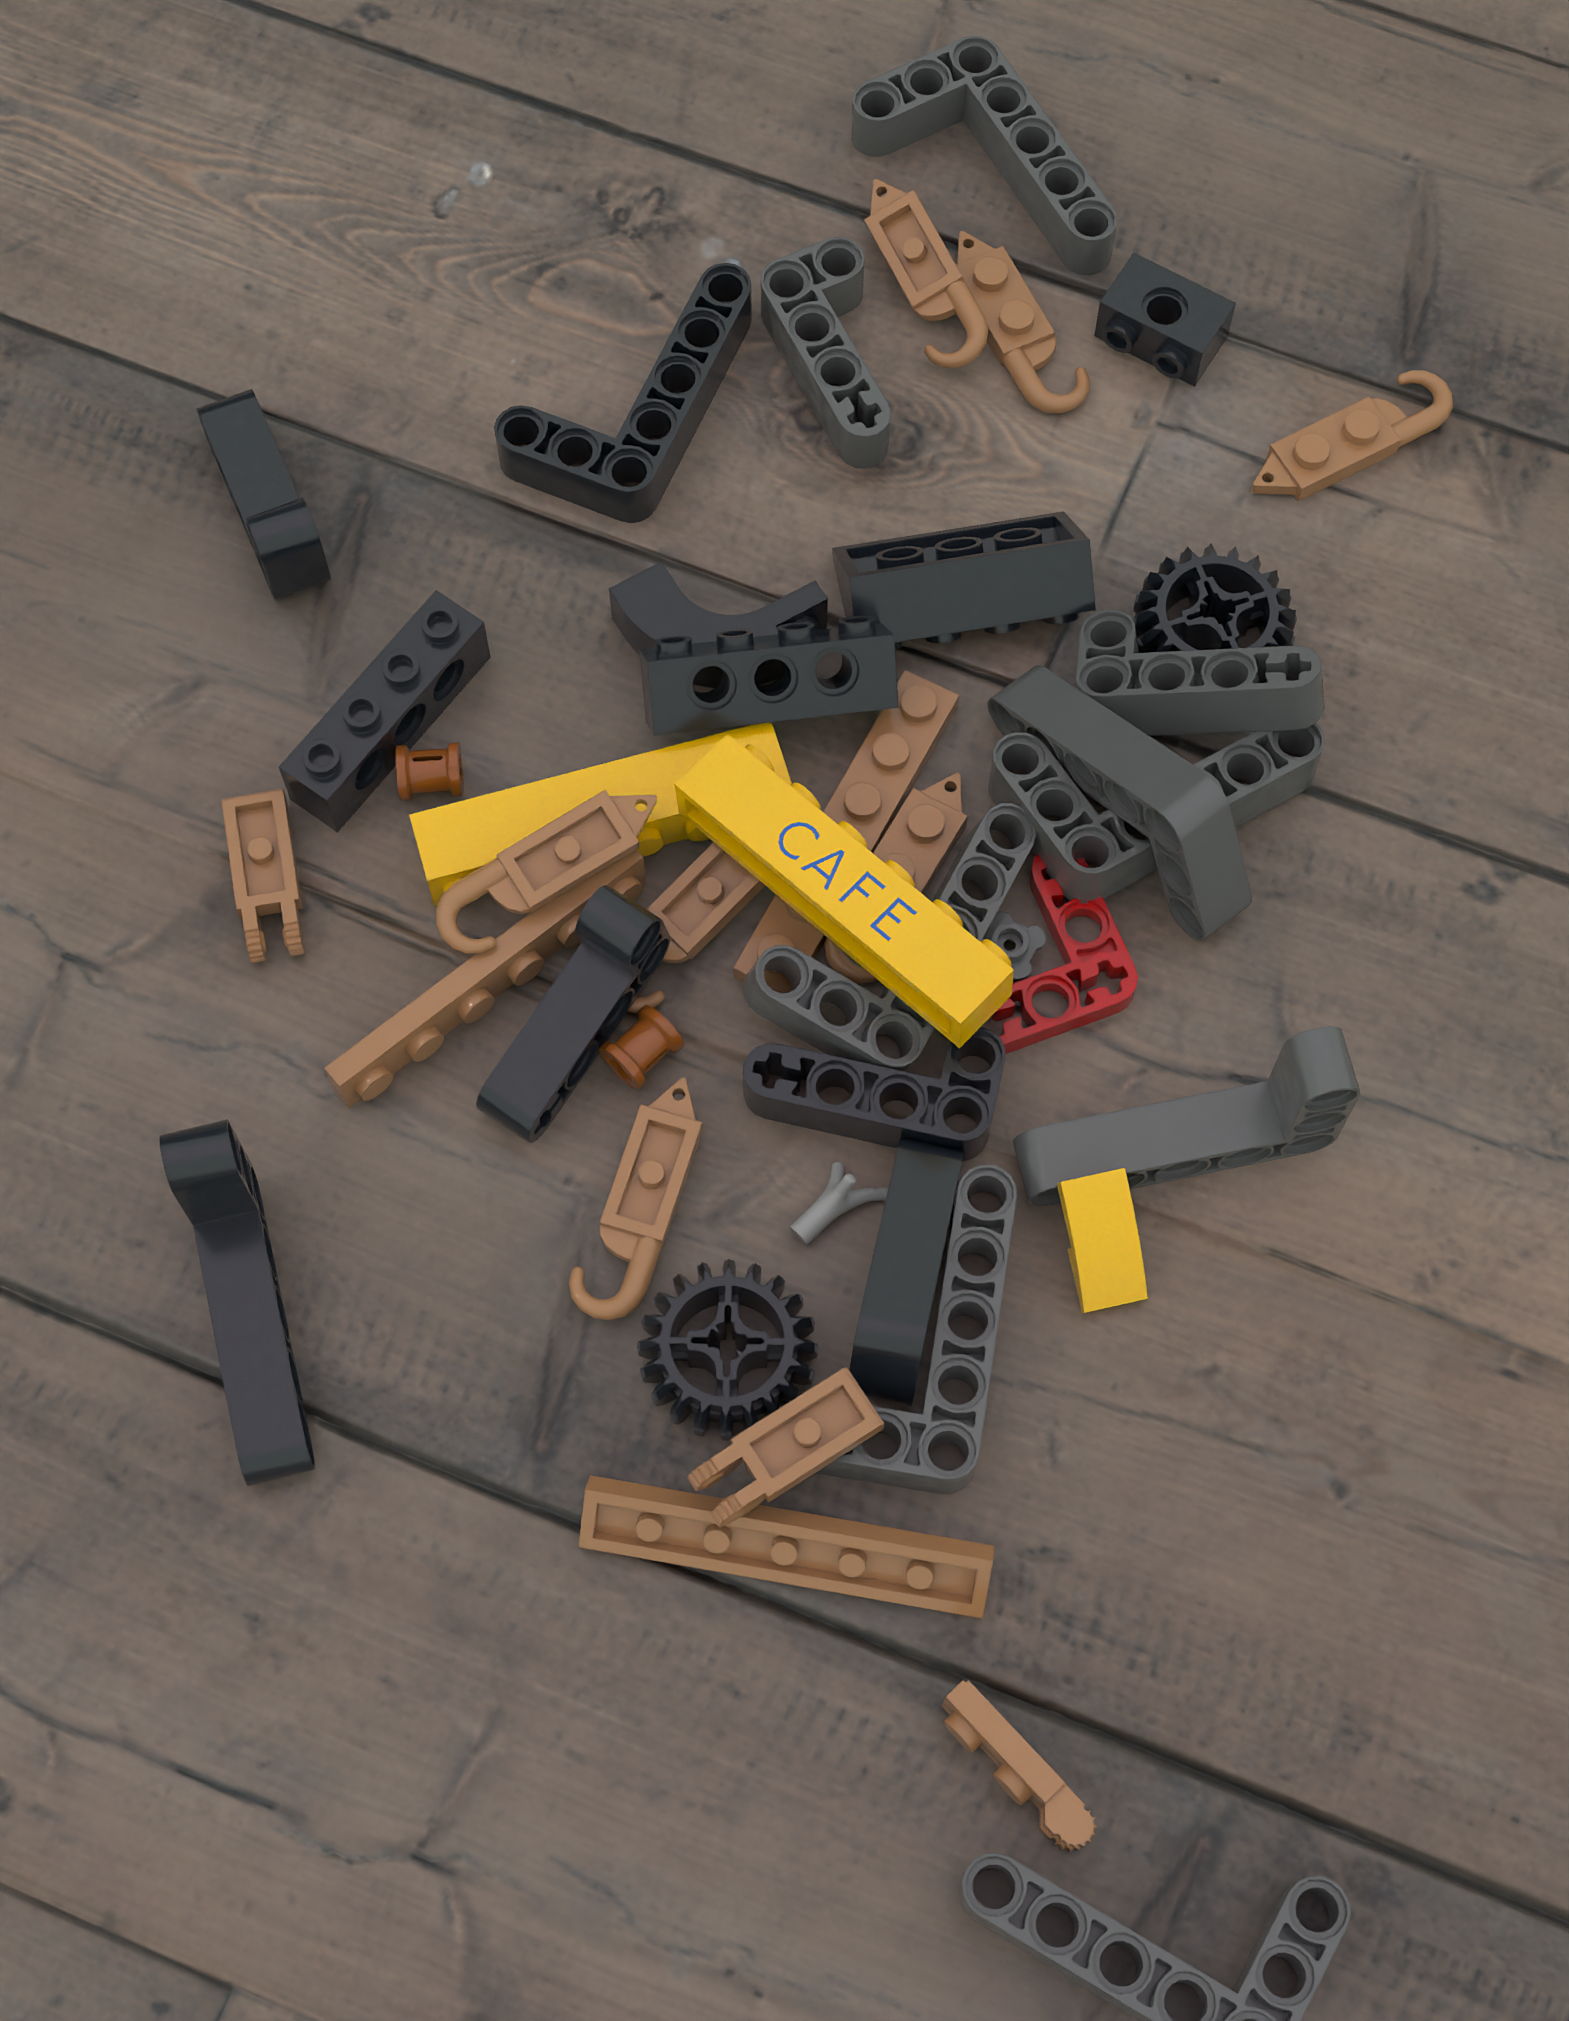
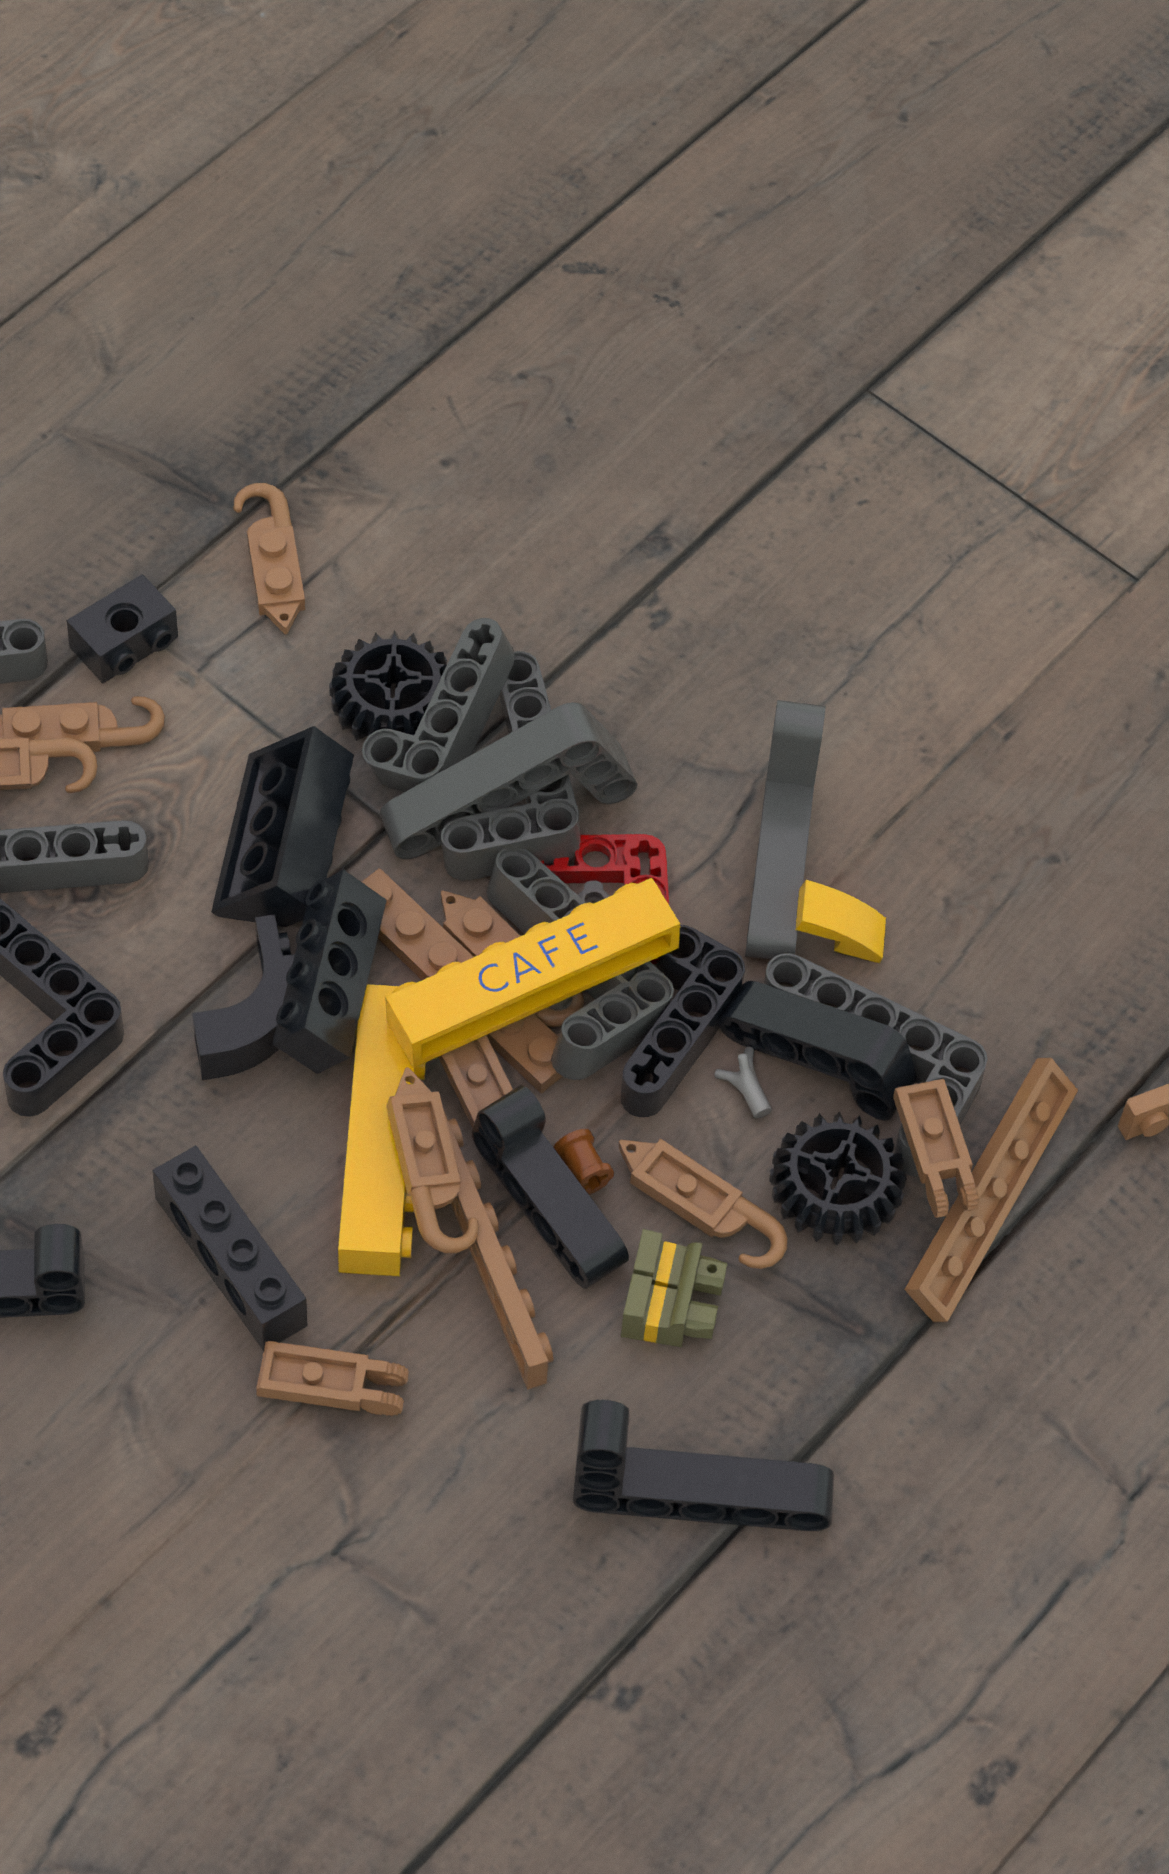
camera: 75 degrees left, 10 degrees down
(429, 771) = (293, 1234): dark orange bush -> none
(471, 1206) = (662, 1291): none -> olive hips

